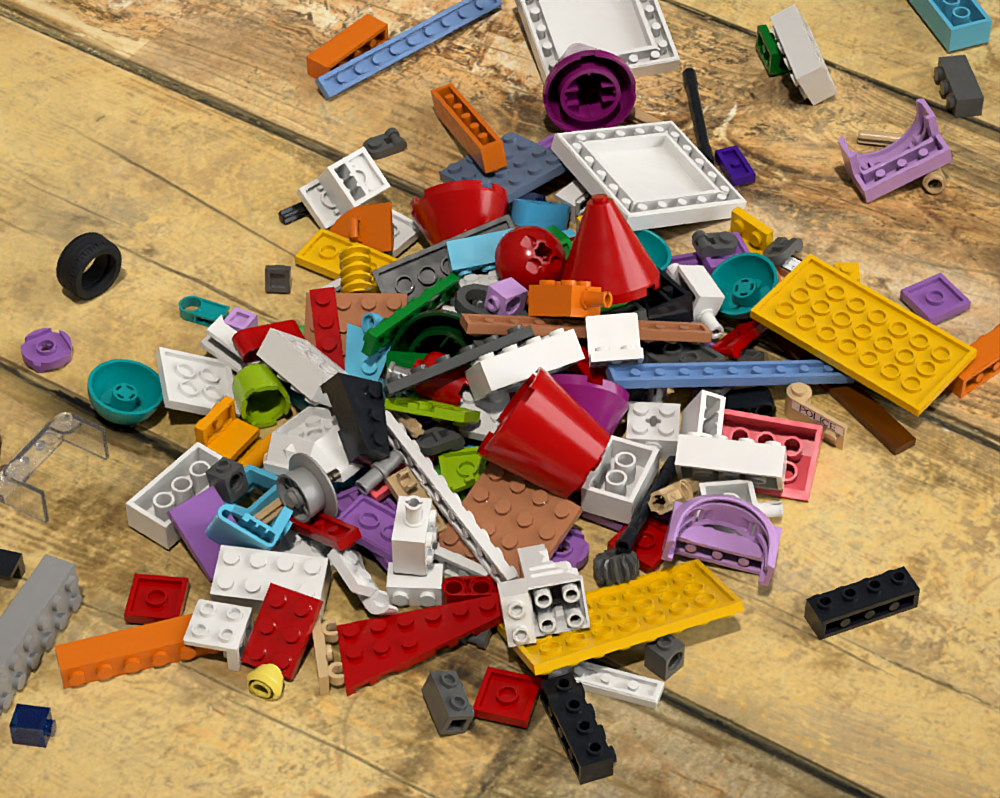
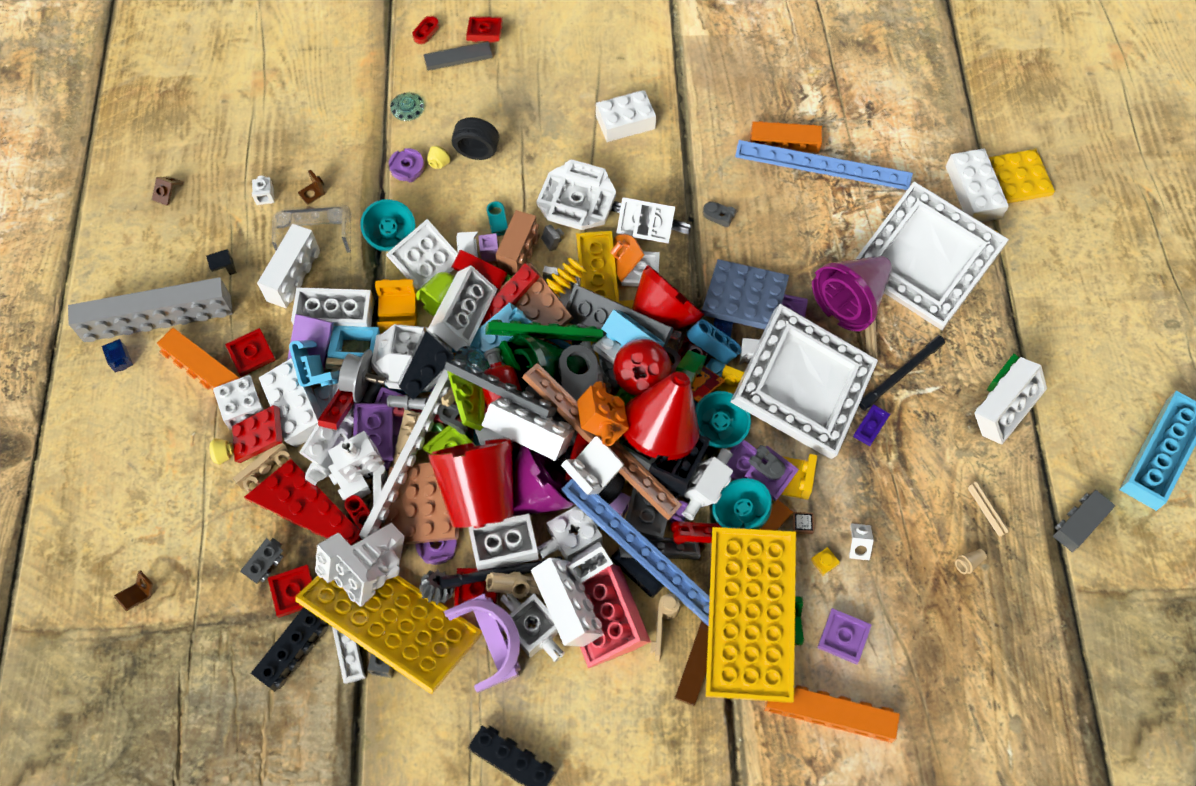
camera: 55 degrees right, 20 degrees up
(69, 315) = (438, 157): none -> light yellow cone
(83, 503) = (289, 266): none -> white brick
(187, 146) = (625, 115): none -> white brick
(228, 479) = (344, 326): dark grey brick -> none
(252, 227) = (581, 183): none -> white piece
(261, 293) = (517, 242): none -> nougat brick
(469, 128) = (757, 250): orange brick -> none
(506, 297) = (582, 376): lavender brick -> none
(782, 249) = (800, 507): dark grey plate -> none
(848, 232) = (861, 536): none -> white bracket
(899, 162) = (959, 527): lavender piece -> none

